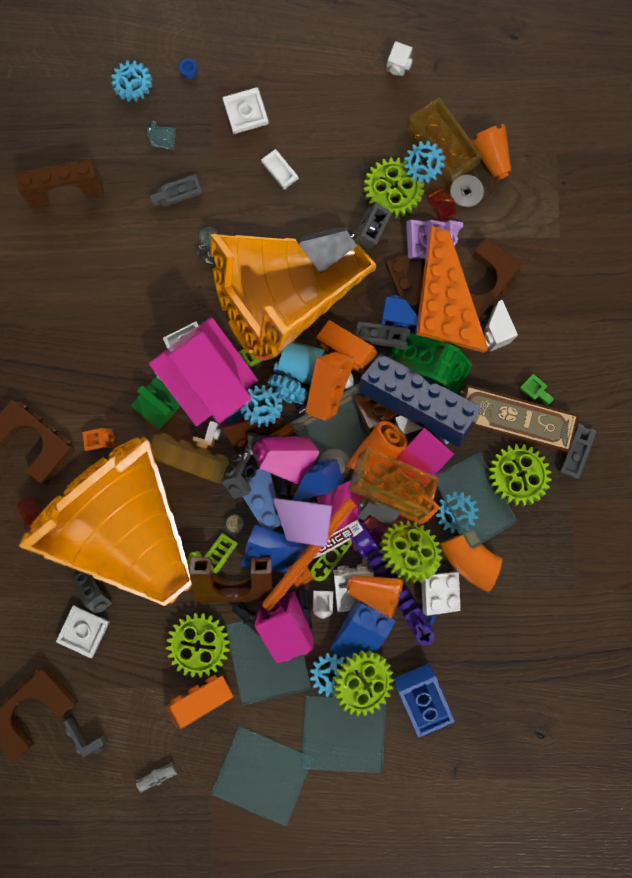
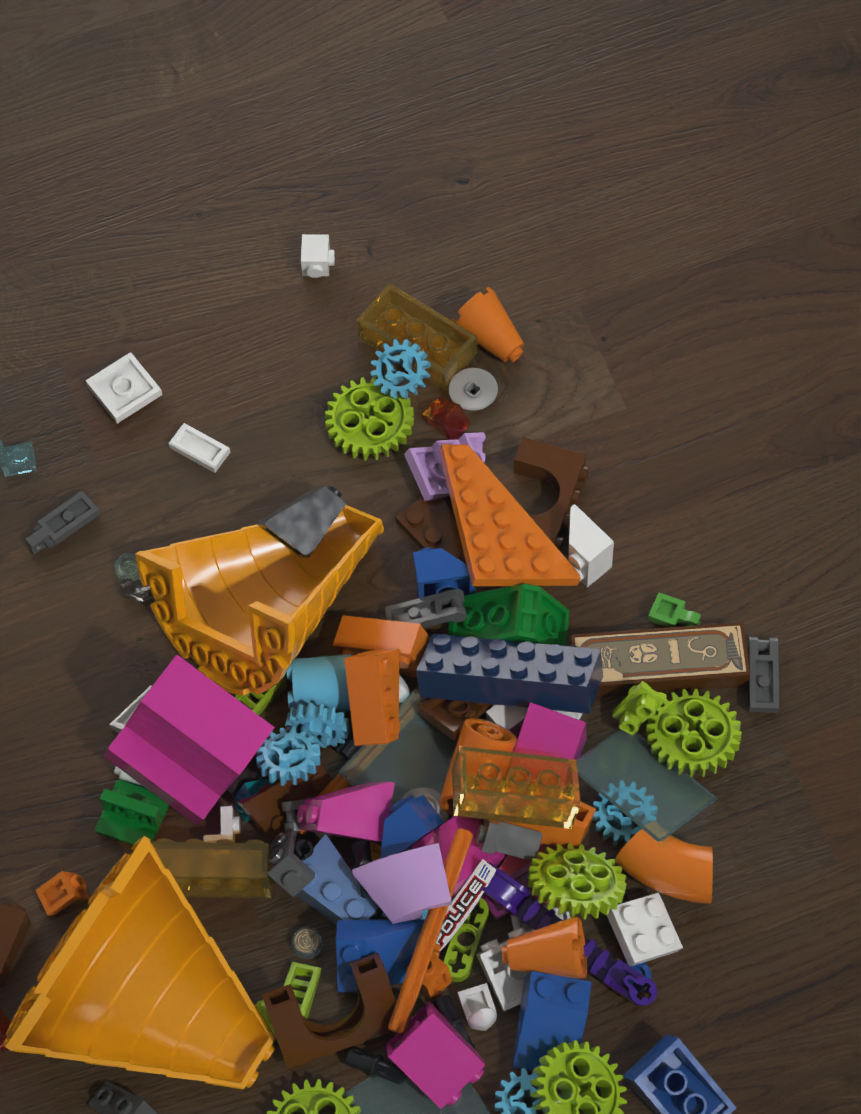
camera: 15 degrees left, 20 degrees down
(188, 68) = (22, 360): blue tile -> none
(372, 226) = (358, 474): dark grey brick -> none
(492, 447) = (637, 707): none -> lime hips

